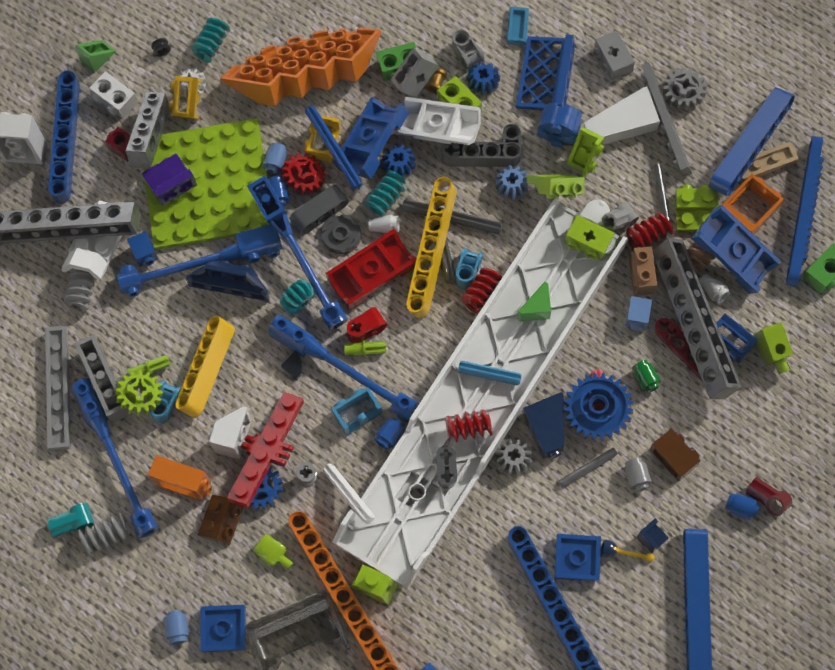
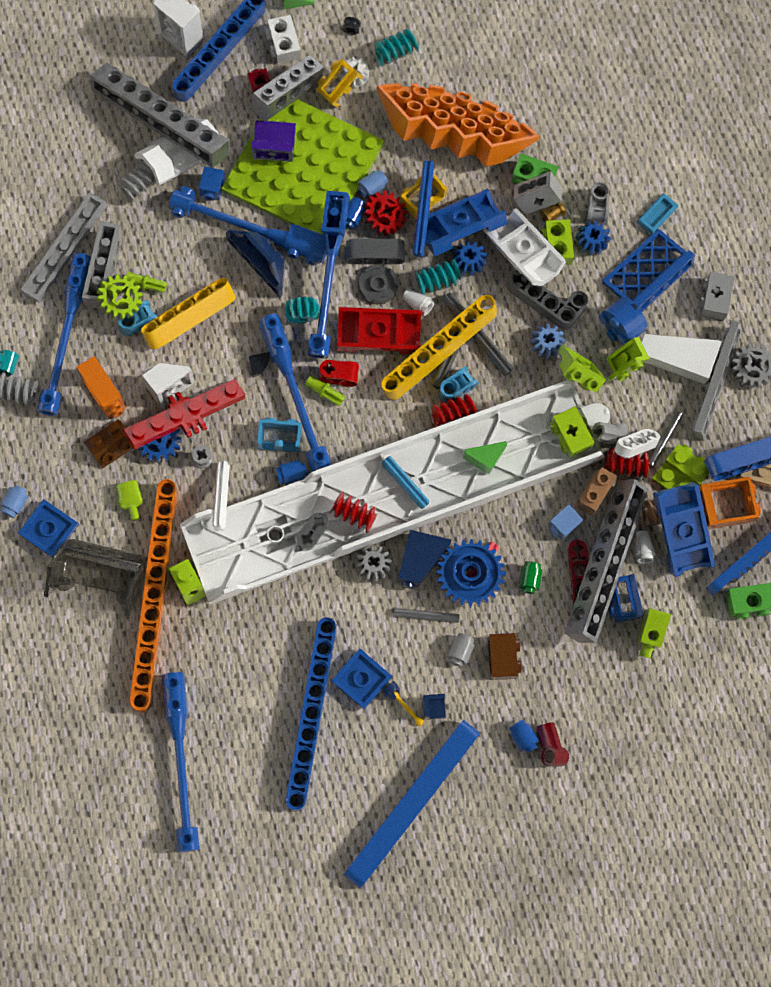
camera: 25 degrees right, 5 degrees up
(645, 210) = (637, 443): none -> white beam

